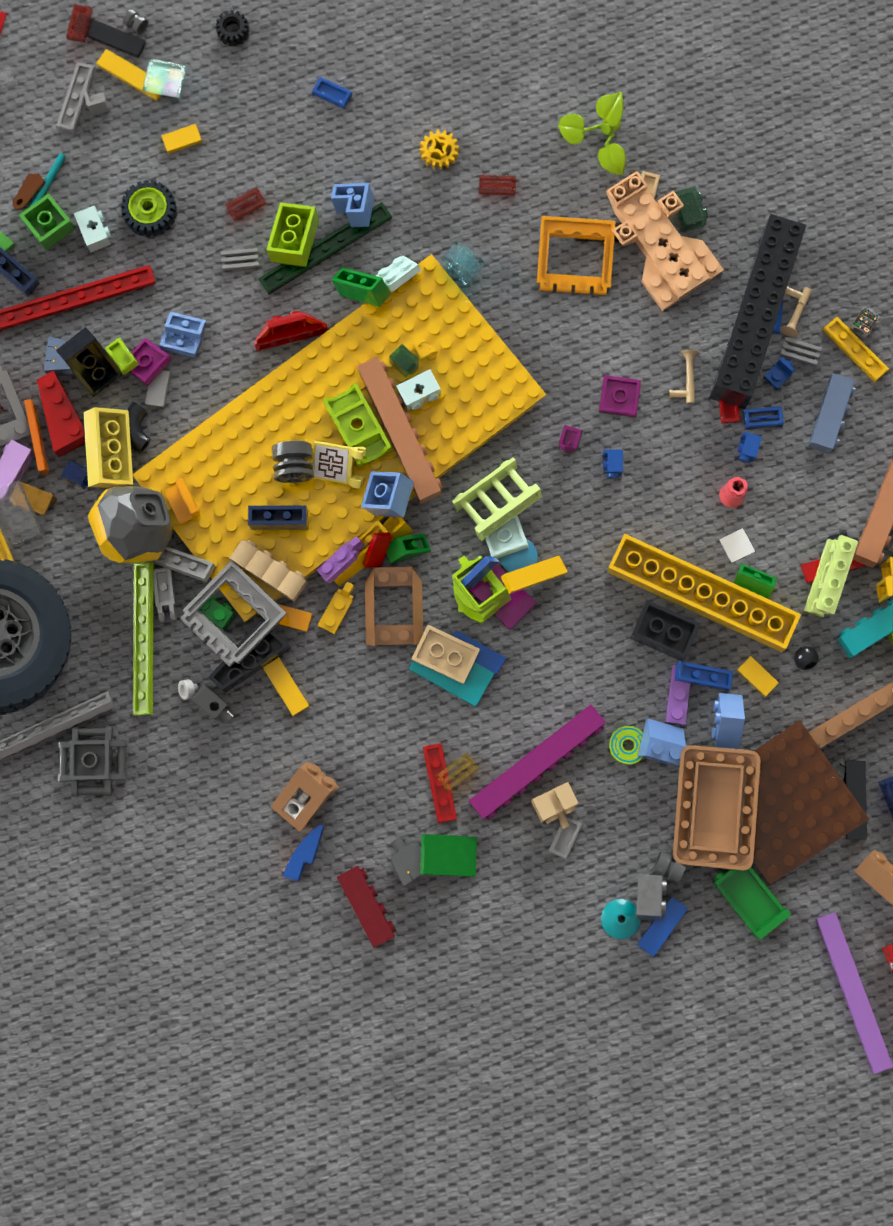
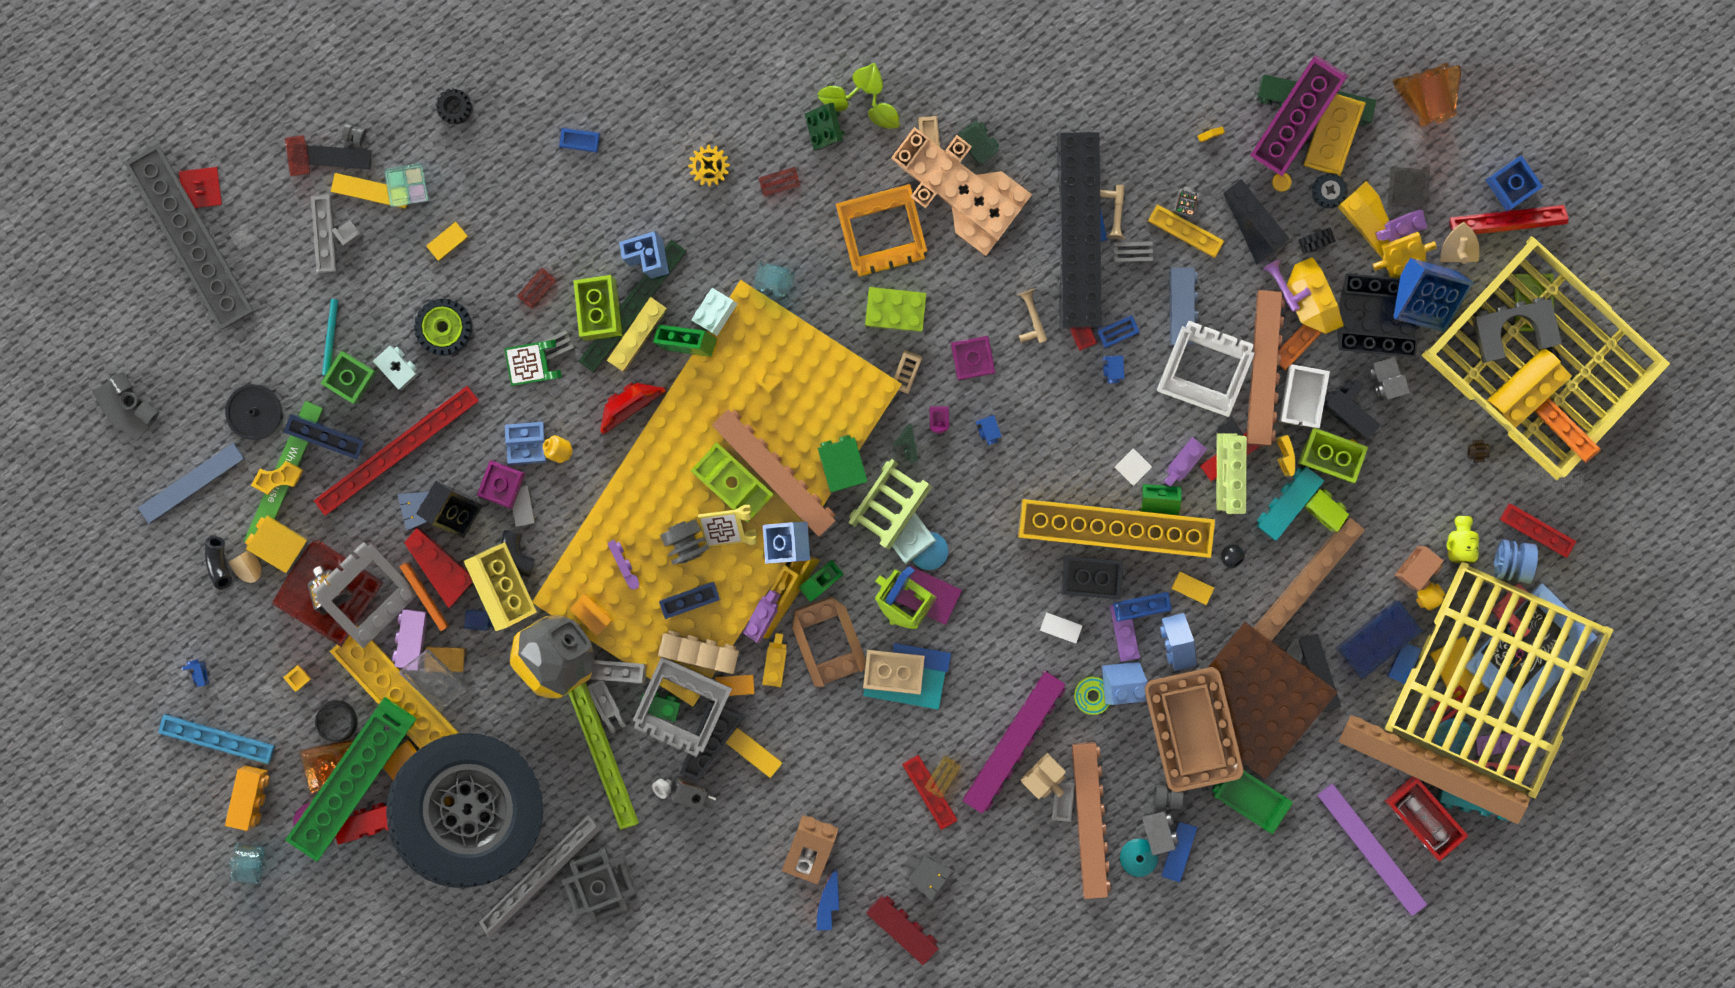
camera: 20 degrees left, 10 degrees up
(28, 190) = (315, 349): reddish brown piece -> none
(121, 356) = (475, 487): lime tile -> none
(209, 346) = (557, 449): none -> yellow head
(213, 265) = (529, 363): none -> flag
(229, 467) = (624, 565): none -> medium lavender hinge
(319, 271) = (637, 334): none -> light yellow brick
(377, 549) = (794, 595): red tile -> none
(404, 361) = (754, 402): clear green brick -> none
(425, 382) = (768, 431): light aqua brick -> none
(448, 855) = (962, 857): green tile -> none
(465, 443) = (842, 463): none -> green brick
(532, 445) = (907, 437): none -> clear green slope
(534, 574) = (951, 568): yellow tile -> none
(555, 148) = (824, 126): none -> dark green plate
(562, 374) = (907, 354): none -> tan slope
(563, 327) = (895, 309): none -> lime brick
(585, 863) = (1090, 820): none -> nougat brick
(619, 670) = (1061, 627): none -> white tile
(731, 497) = (1106, 416): coral plant -> none
(779, 373) = (1119, 282): blue bracket -> none
(788, 555) = (1184, 461): none -> medium lavender hinge
(820, 497) = (1196, 393): none -> white hinge

